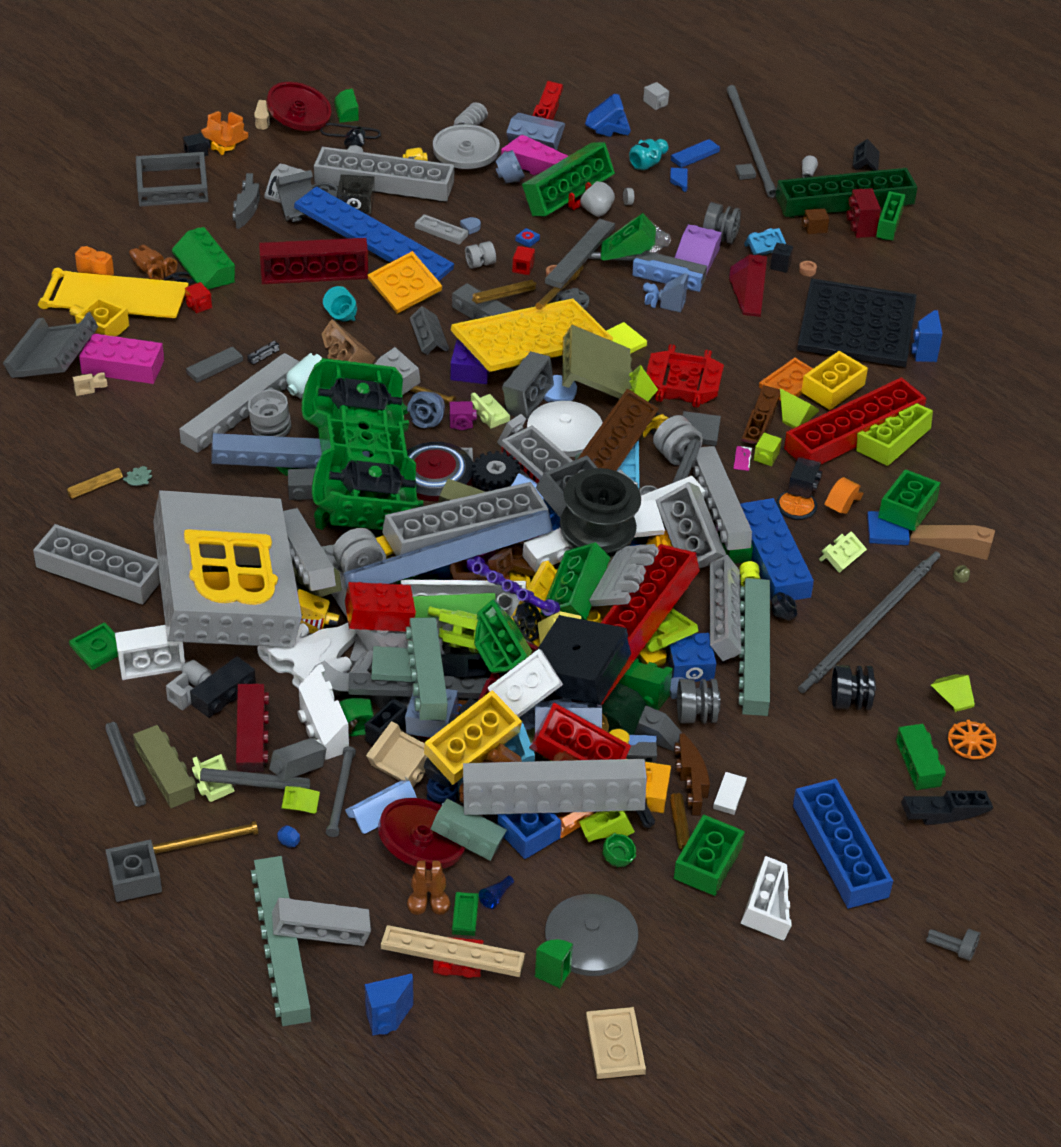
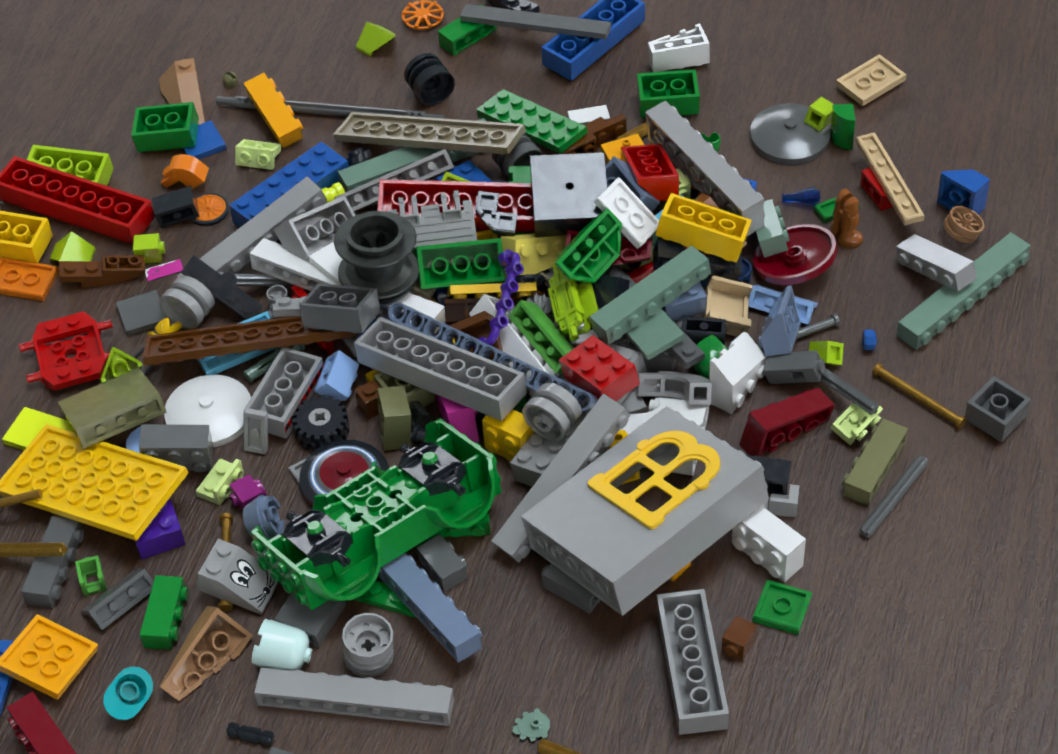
camera: 115 degrees left, 5 degrees up
(94, 603) = (739, 638): none -> reddish brown brick
(340, 766) = (781, 325): none -> sand blue slope
(354, 984) = (963, 224): none -> medium nougat wheel
(385, 337) = (164, 612): none -> green brick
(454, 317) = (89, 567): none -> bright green window
(585, 952) = (819, 114): none -> lime brick
(615, 613) = (496, 221): none -> tile
(674, 458) = (223, 288): none -> black hinge
(744, 738) = (540, 123): none -> green plate
(763, 644) = (430, 133): none -> dark tan plate
(876, 790) = (536, 21): none -> dark grey tile
(885, 572) = (273, 110): none -> light orange brick

